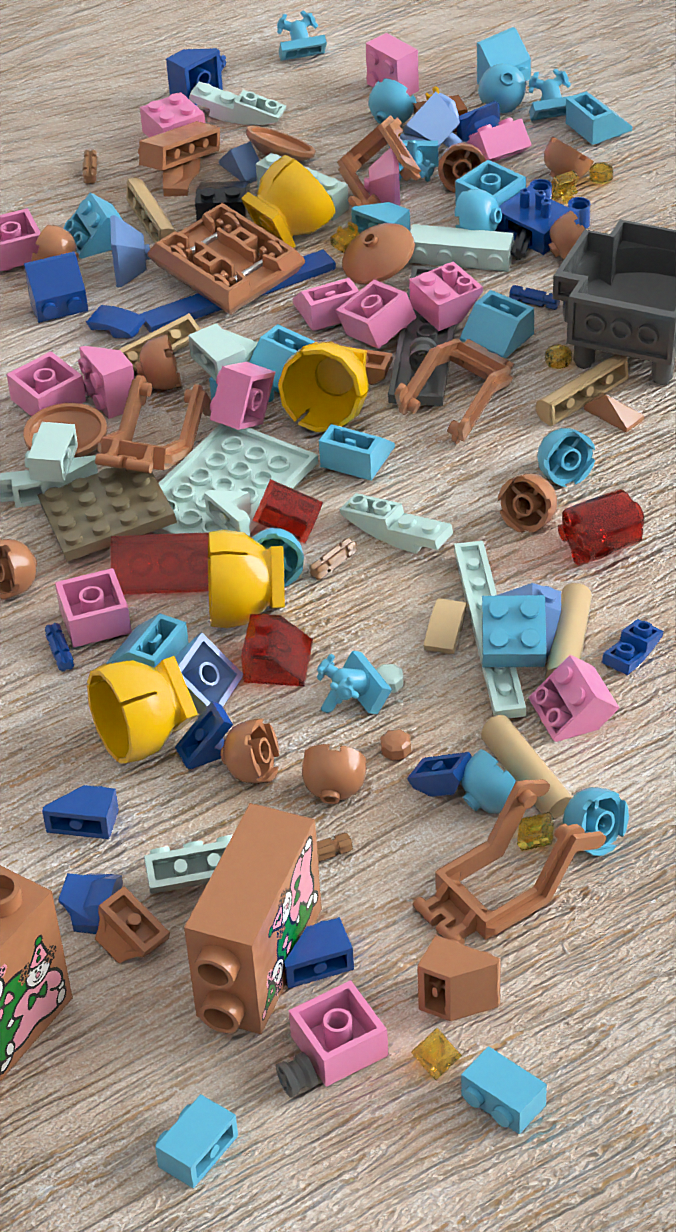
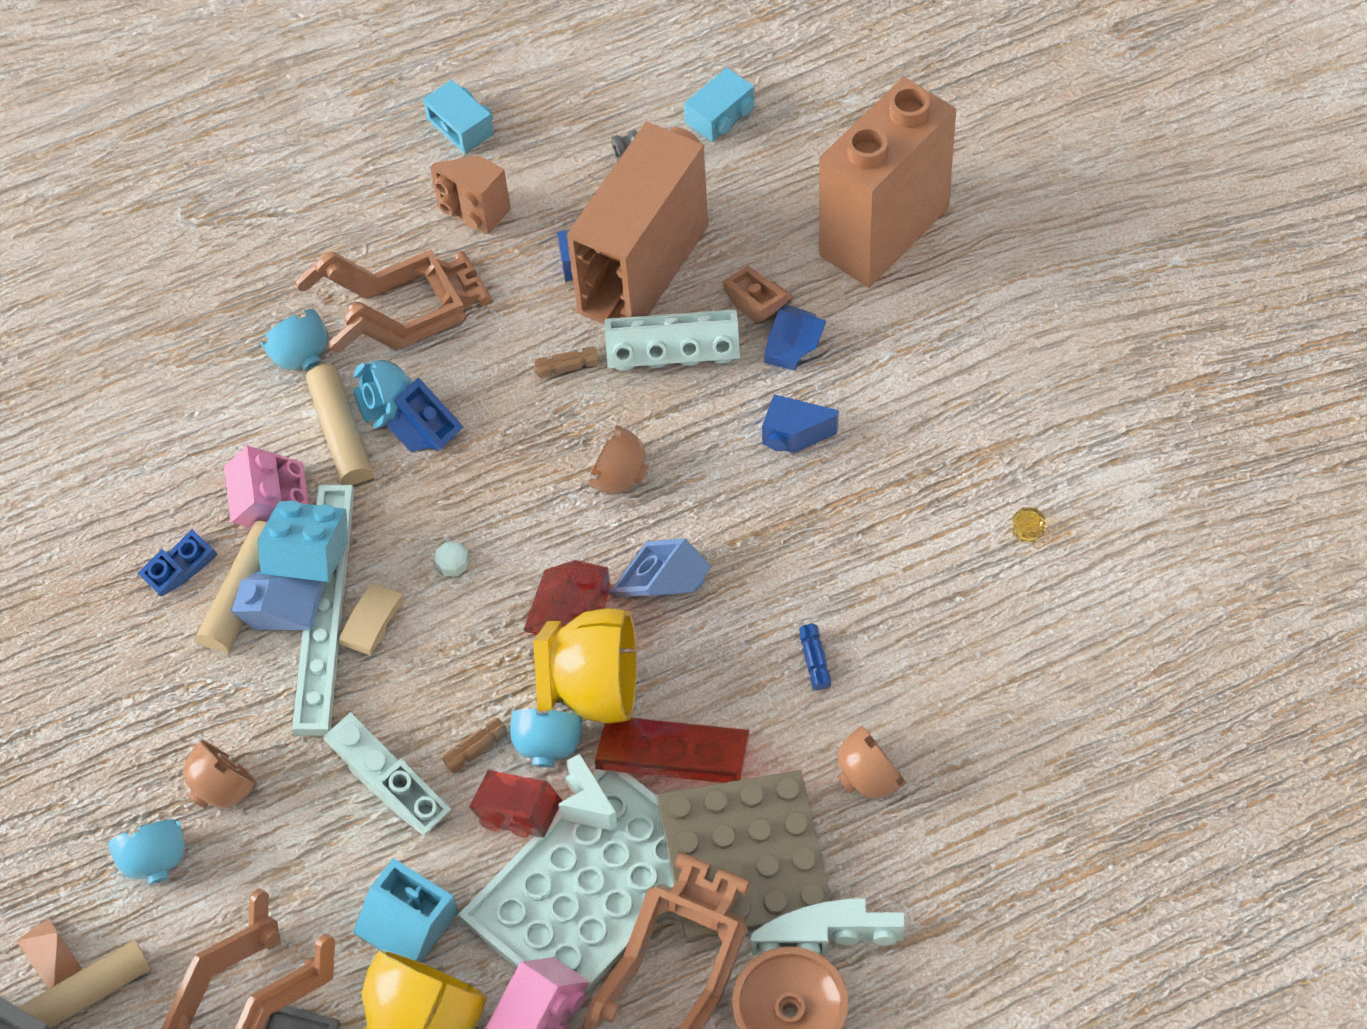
camera: 170 degrees left, 15 degrees up
(52, 452) = (807, 927): light aqua brick -> none
(93, 607) = (770, 683): bright pink brick -> none
(138, 706) = (726, 500): yellow plate -> none
(153, 641) = (712, 618): medium azure slope -> none
(205, 737) = (661, 494): blue slope -> none
(333, 773) = (535, 426): nougat cylinder -> none
(338, 1033) = (580, 163): bright pink brick -> none
(354, 680) = (483, 538): medium azure piece -> none
(395, 744) = (464, 473): nougat tile -> none
(436, 1053) = (506, 155): clear yellow tile -> none
(535, 831) = (356, 353): clear yellow tile -> none
(602, 526) = (147, 711): clear red cylinder -> none

